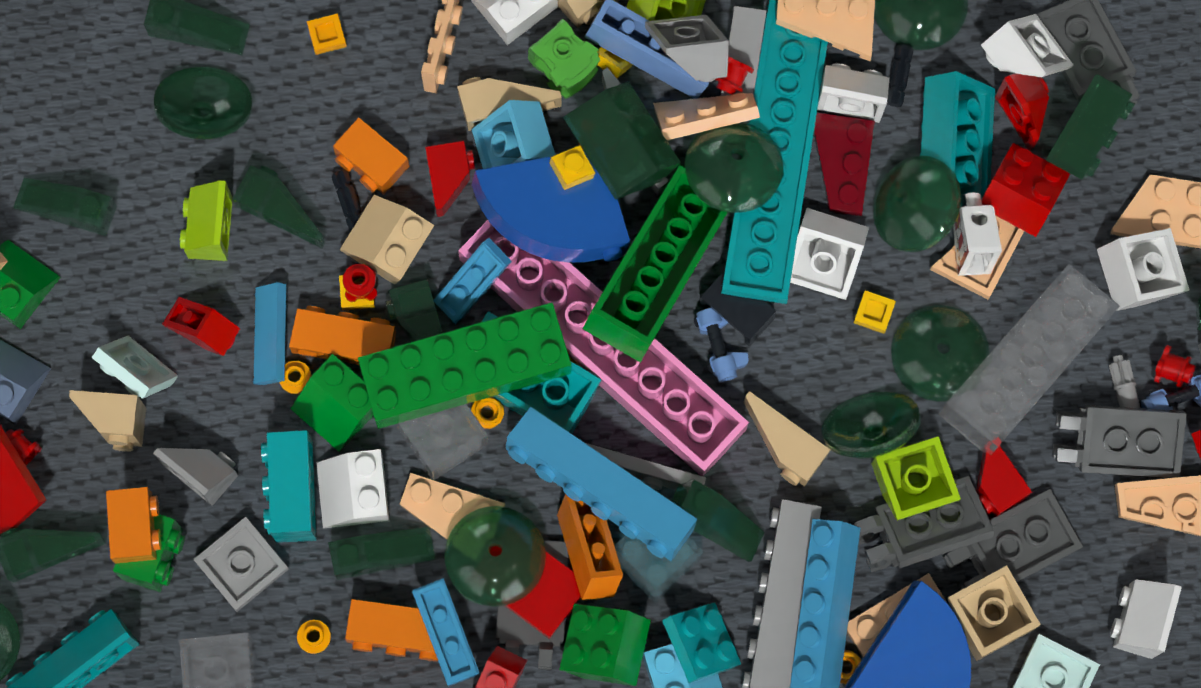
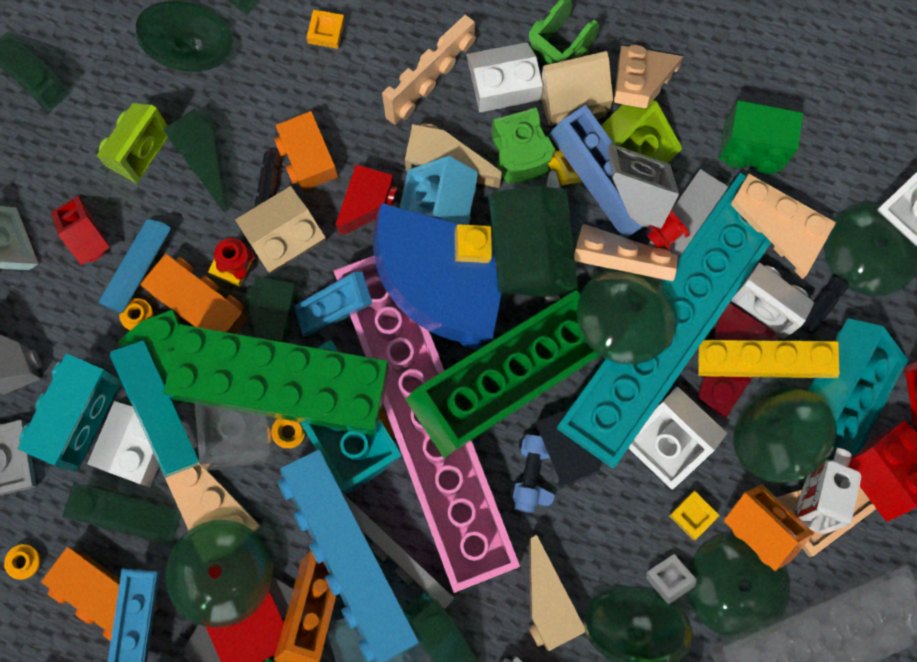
camera: 30 degrees right, 0 degrees up
(366, 444) = (154, 409): none -> teal tile
(872, 146) = (769, 359): none -> yellow plate
(880, 374) = (671, 579): none -> light grey plate
(940, 289) = (768, 527): none -> orange brick

